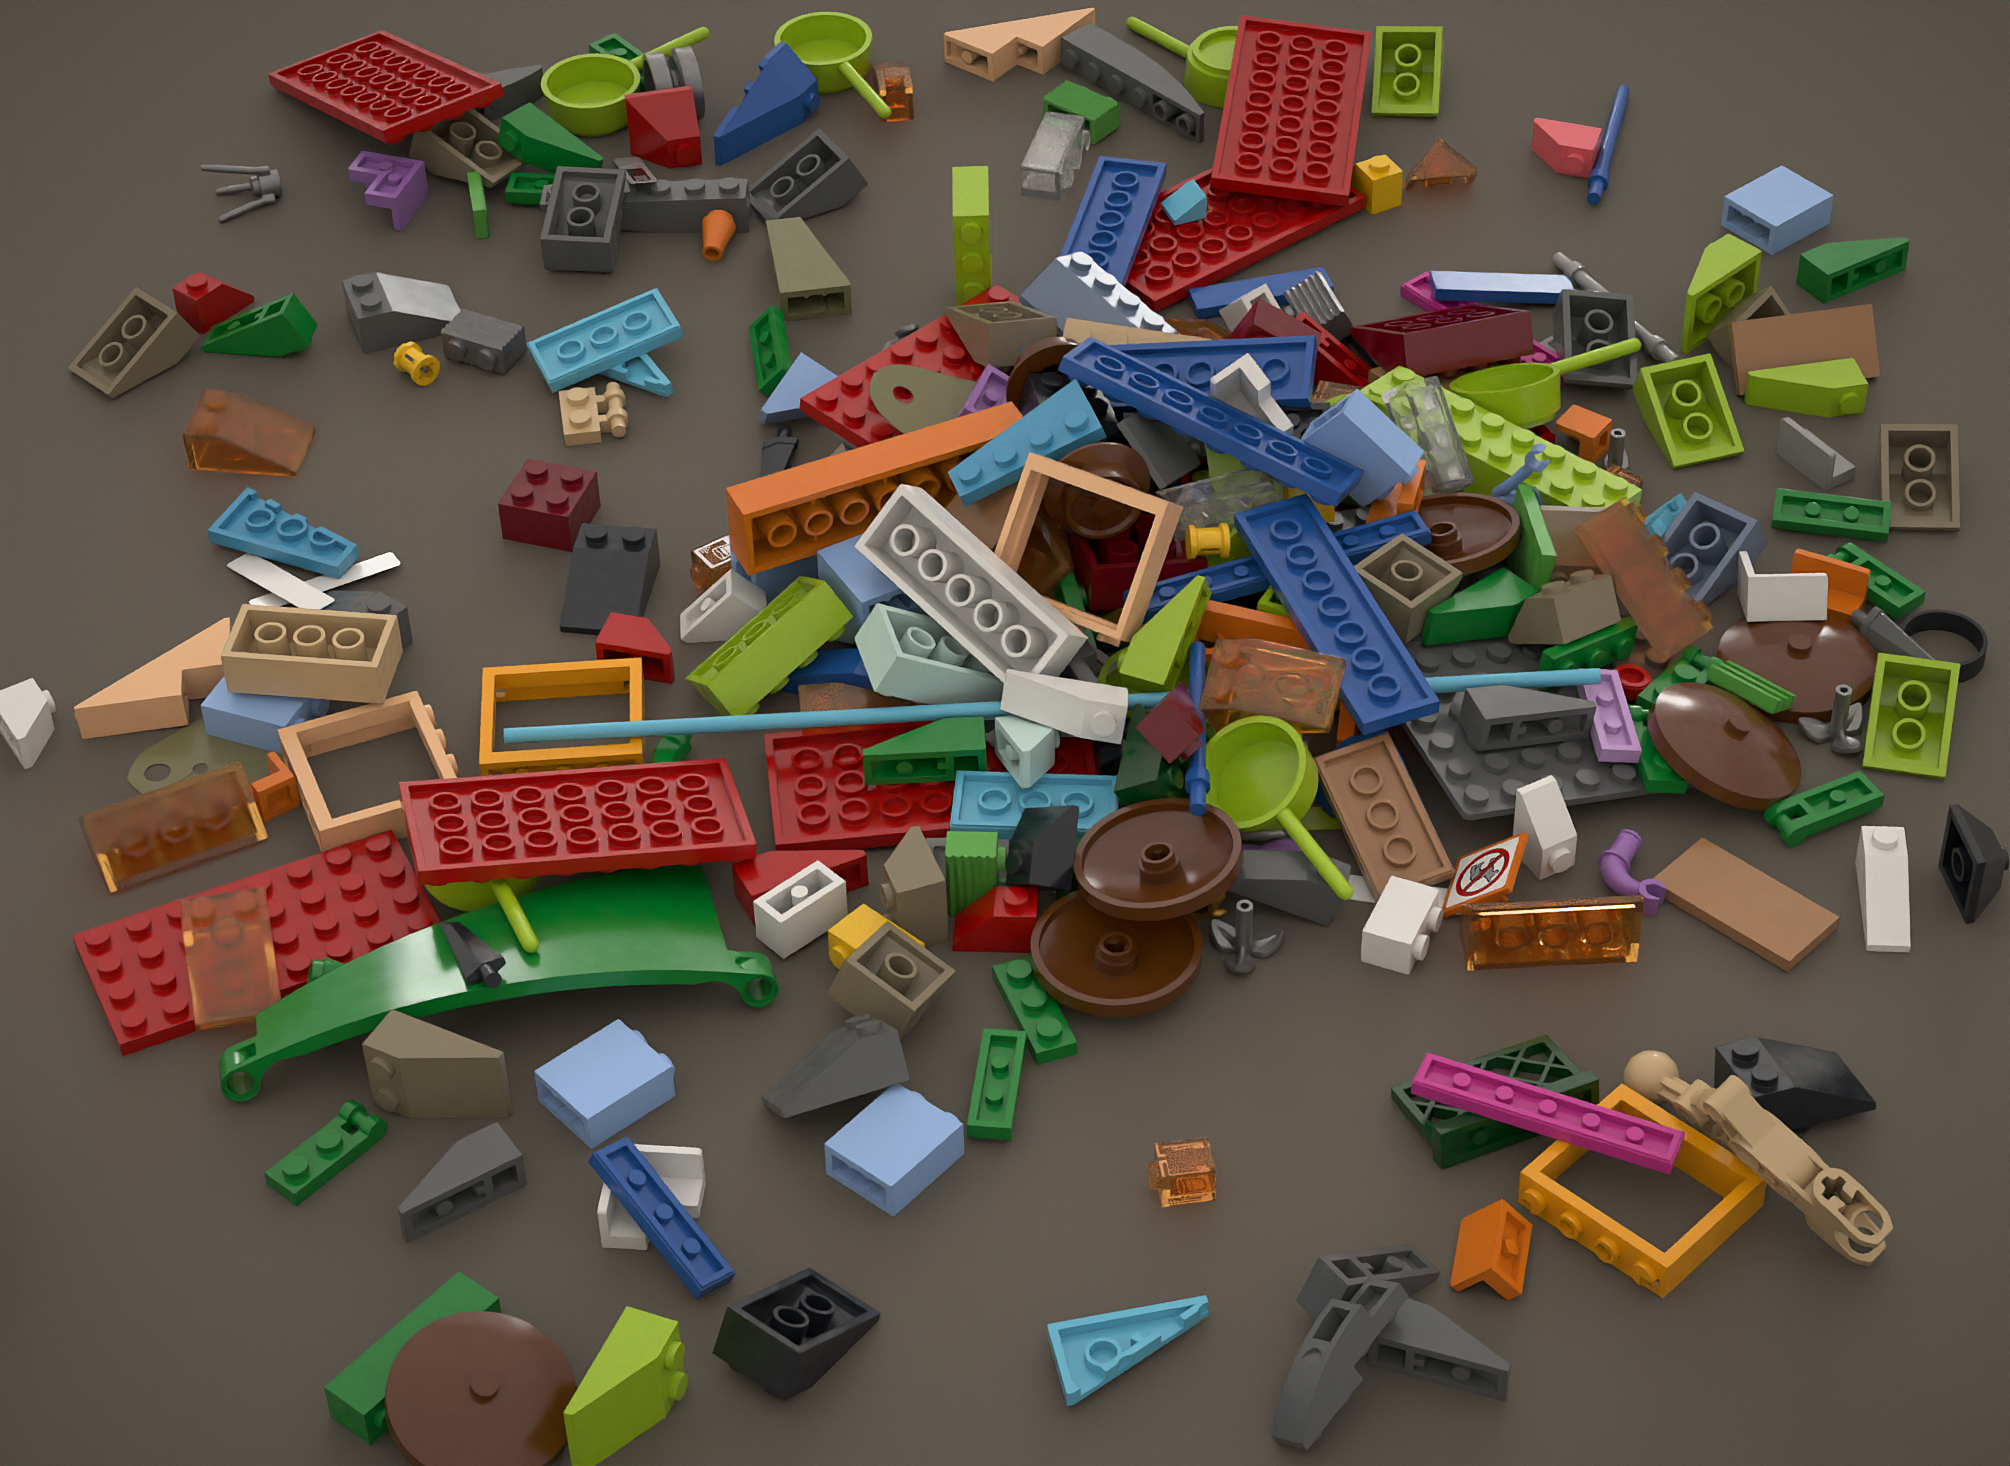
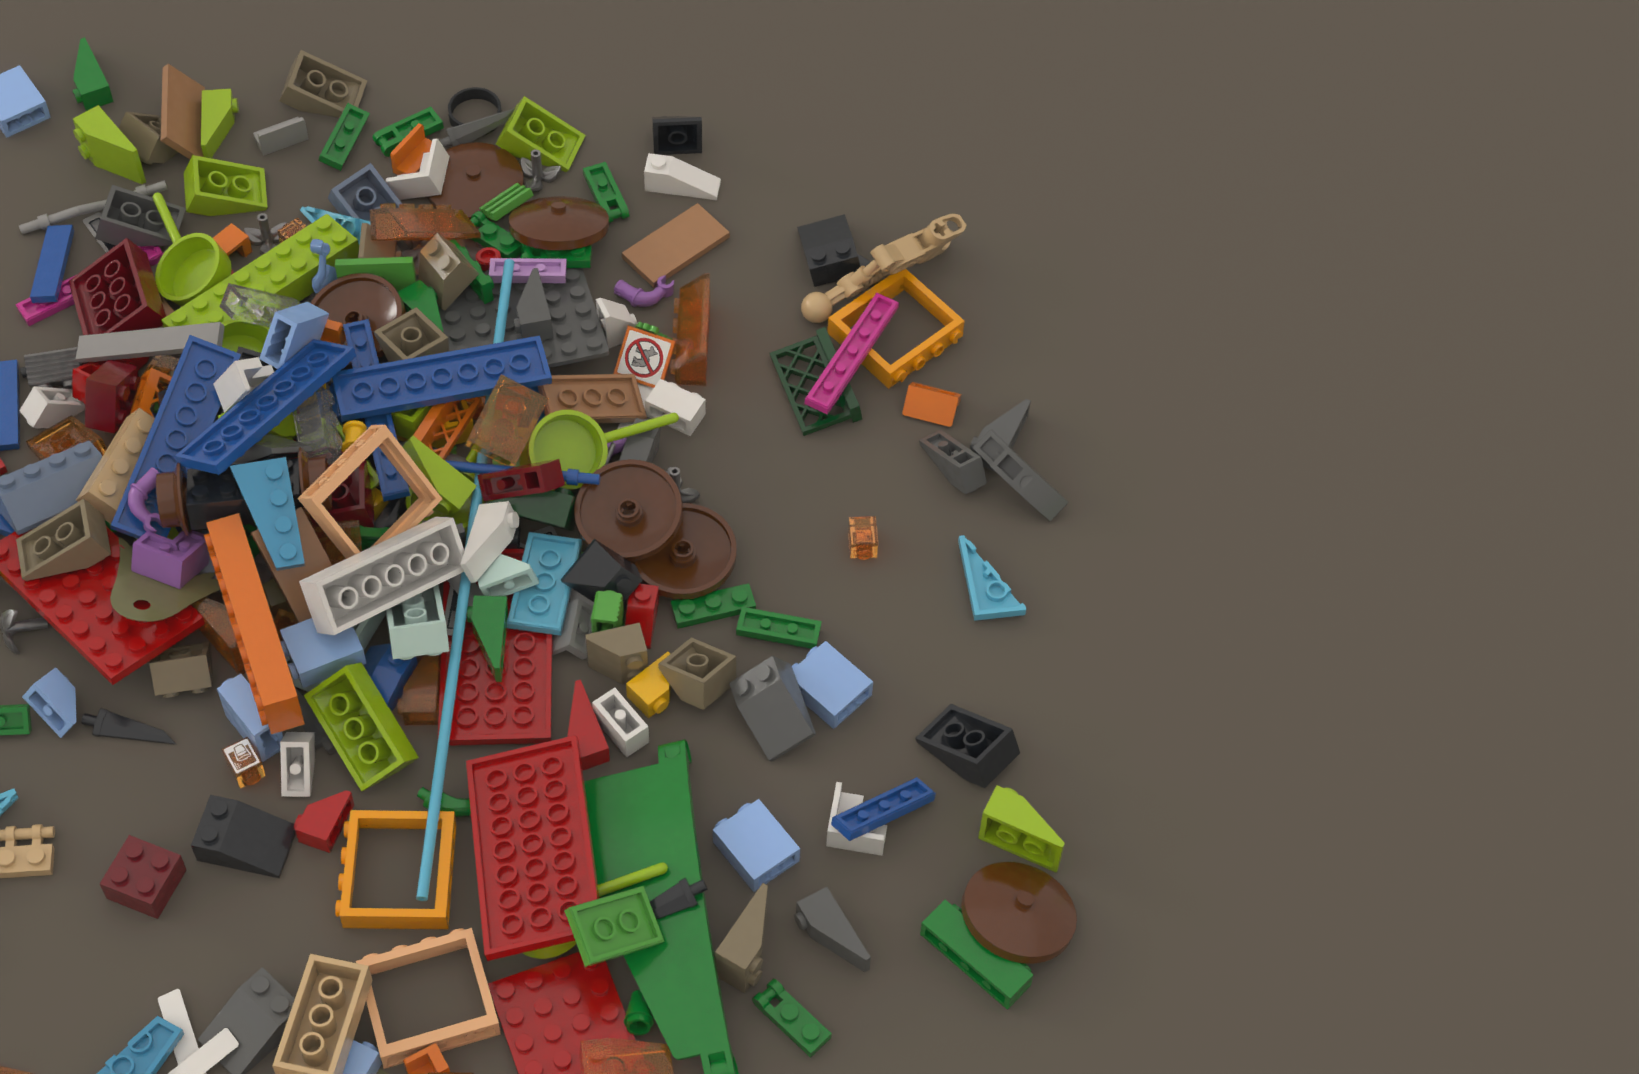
camera: 90 degrees left, 15 degrees up
(421, 885) = (614, 926): none -> bright green tile
(1347, 352) = (144, 342): none -> light grey tile
(1535, 863) = (649, 328): none -> bright green animal

